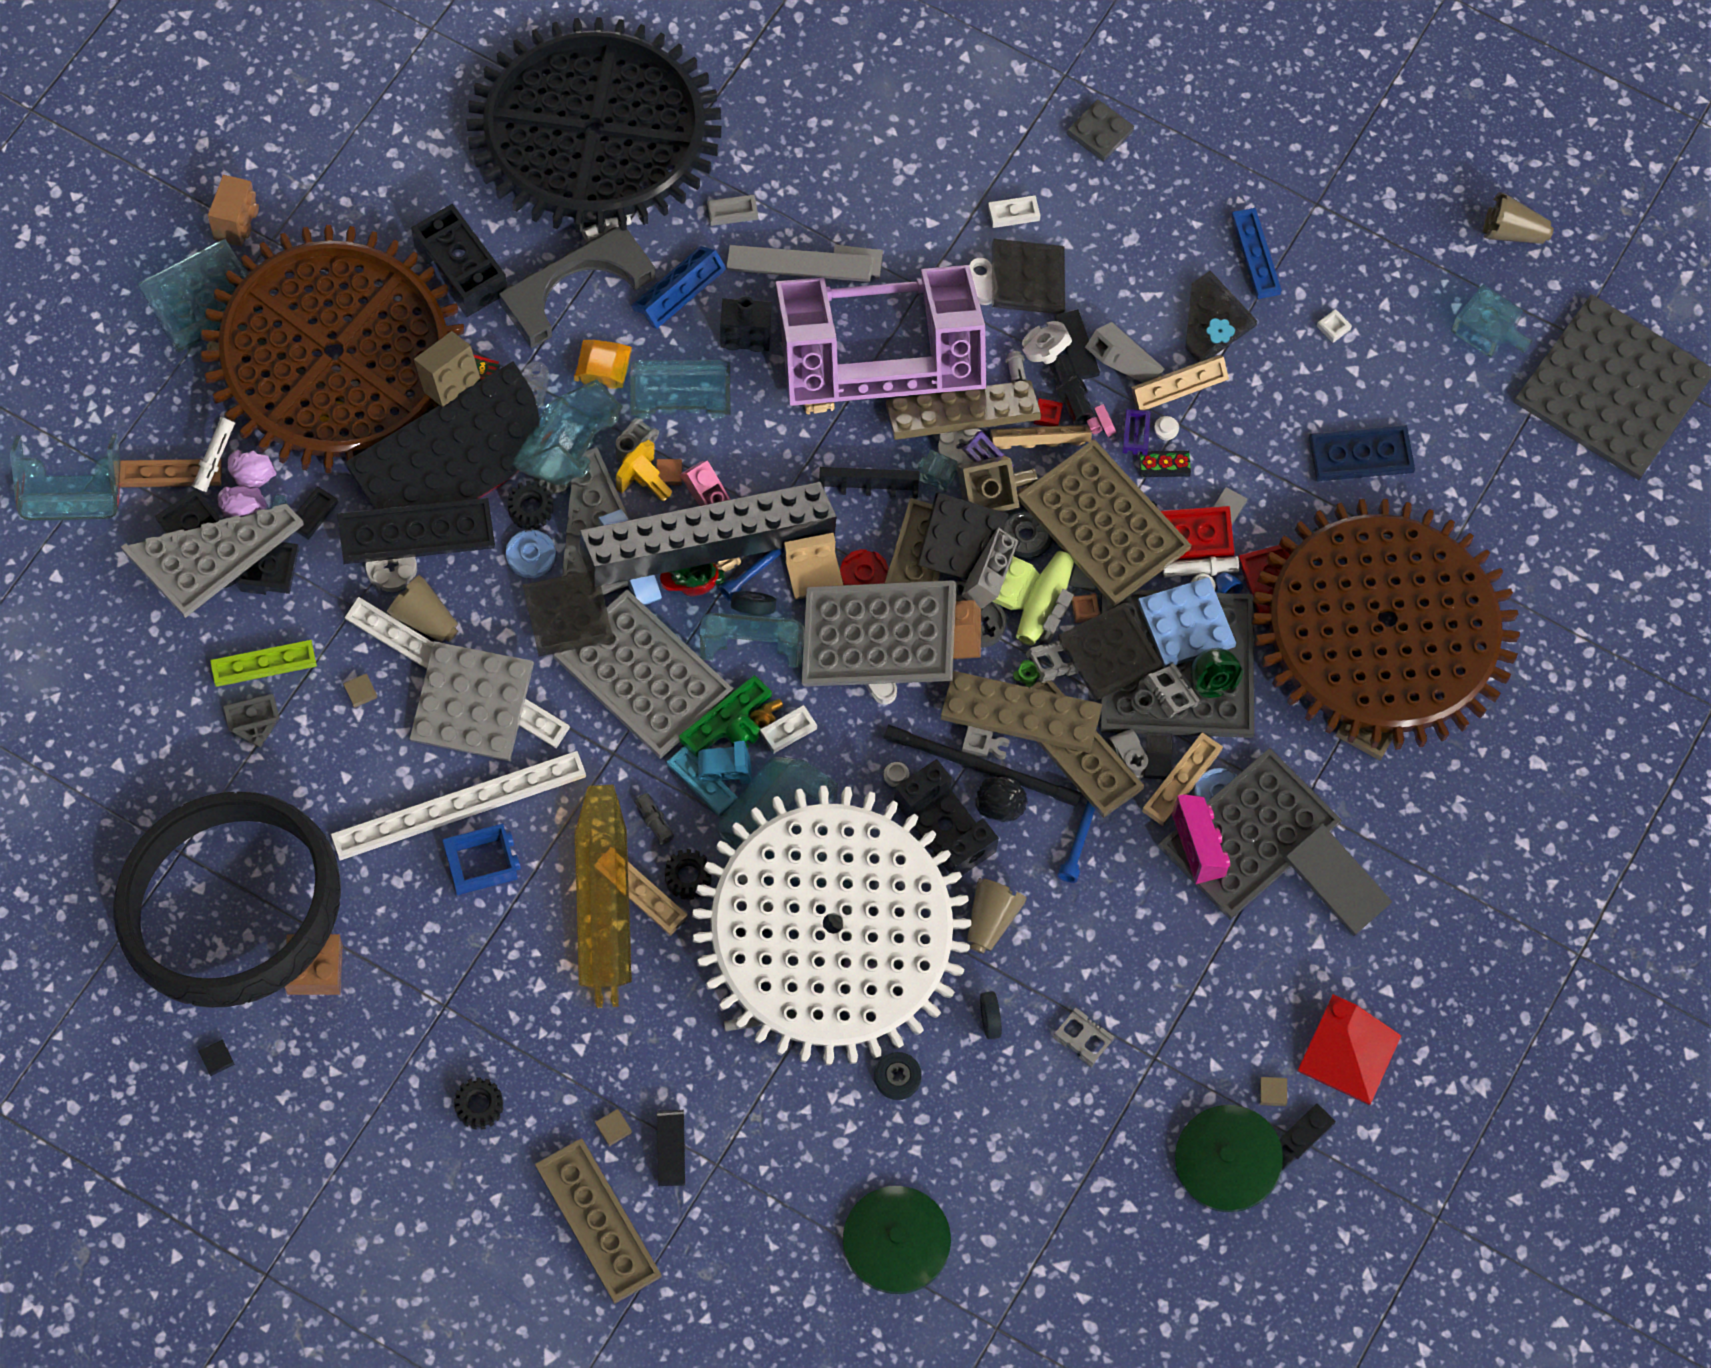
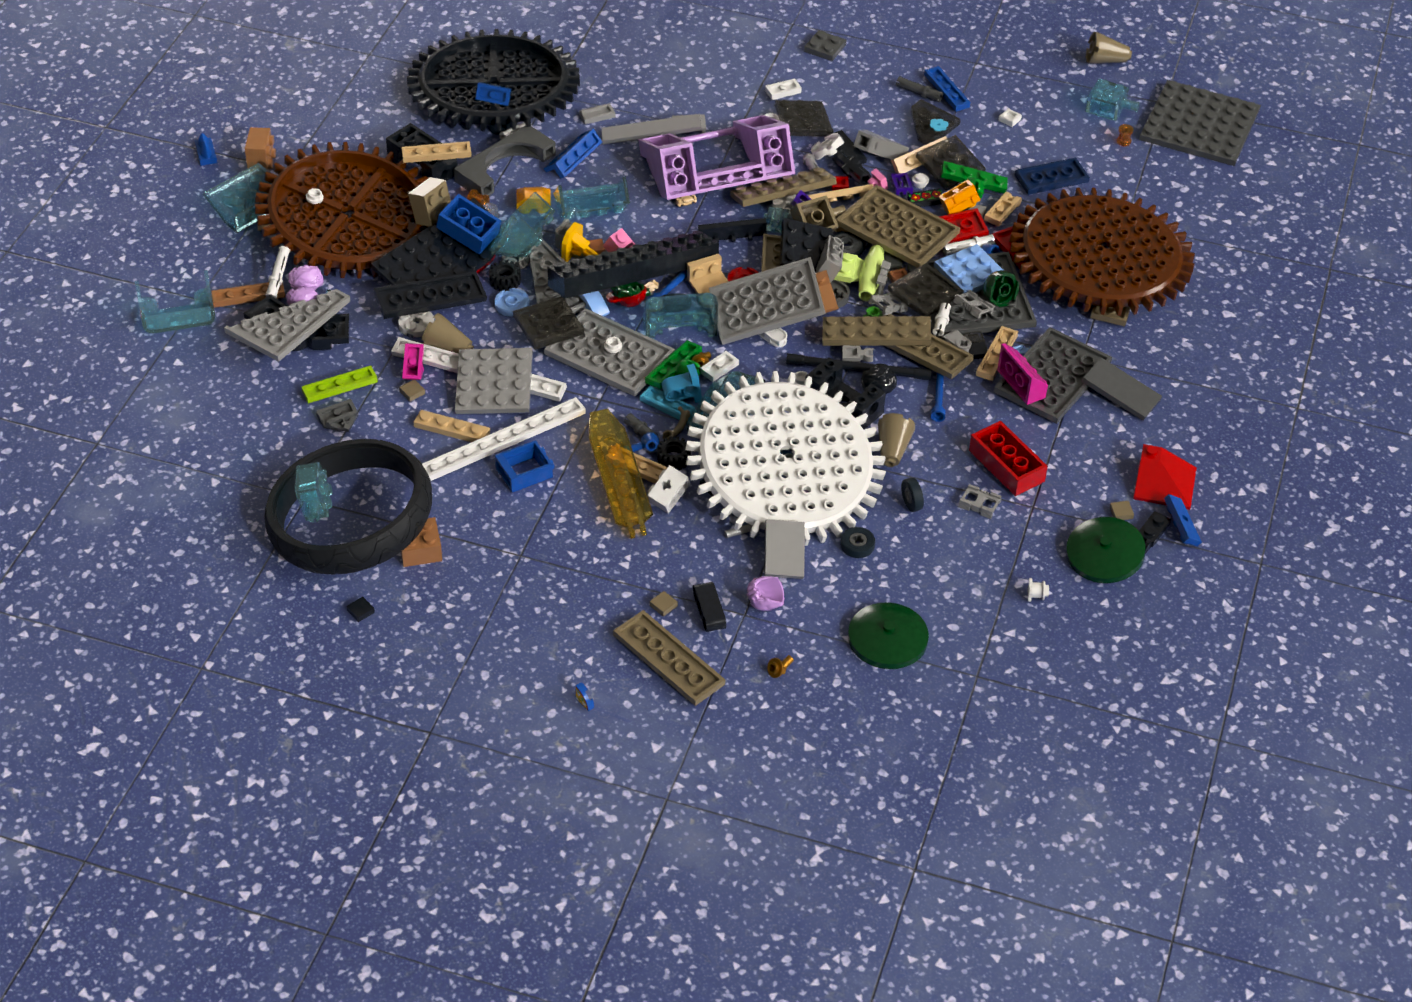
camera: 10 degrees left, 20 degrees down
(161, 185) = (205, 150): none -> blue tile
(176, 889) = (313, 491): none -> clear light blue brick
(288, 325) = (314, 196): none -> white plate
(315, 511) = (358, 298): black tile -> none
(368, 649) = (413, 361): none -> dark pink slope
(399, 766) = (450, 426): none -> tan plate
(473, 1263) = (582, 697): none -> blue tile
(474, 273) = (436, 152): none -> tan plate
(474, 1088) = (561, 612): black tyre -> none
(492, 418) = (468, 224): none -> blue brick
(523, 351) = (482, 199): none -> clear orange bush
(582, 166) = (493, 94): none -> blue tile
(647, 670) = (613, 345): none -> white plate
(658, 850) = (645, 440): none -> blue bar
(676, 938) = (668, 498): none -> white brick
(707, 828) = (680, 426): none -> dark tan piece
(736, 1267) = (777, 667): none -> pearl gold plate
(745, 324) = (625, 159): black brick -> none
(749, 1145) = (765, 593): none -> lavender hair
(793, 1075) = (784, 549): none -> light grey tile
(1116, 1208) = (1037, 590): none -> white brick
(1118, 710) = (941, 319): none -> white pin
(1140, 976) = (1008, 458): none -> red brick
(1208, 484) = (959, 198): none -> light orange brick
(1218, 406) = (948, 150): none -> clear smoke plate
(1222, 252) = (925, 91): none -> dark grey pin
(1242, 447) = (980, 179): none -> green plate
(1269, 507) = (1002, 209): none -> tan plate
(1349, 1129) = (1182, 520): none -> blue tile
(1492, 395) = (1125, 135): none -> clear orange bush

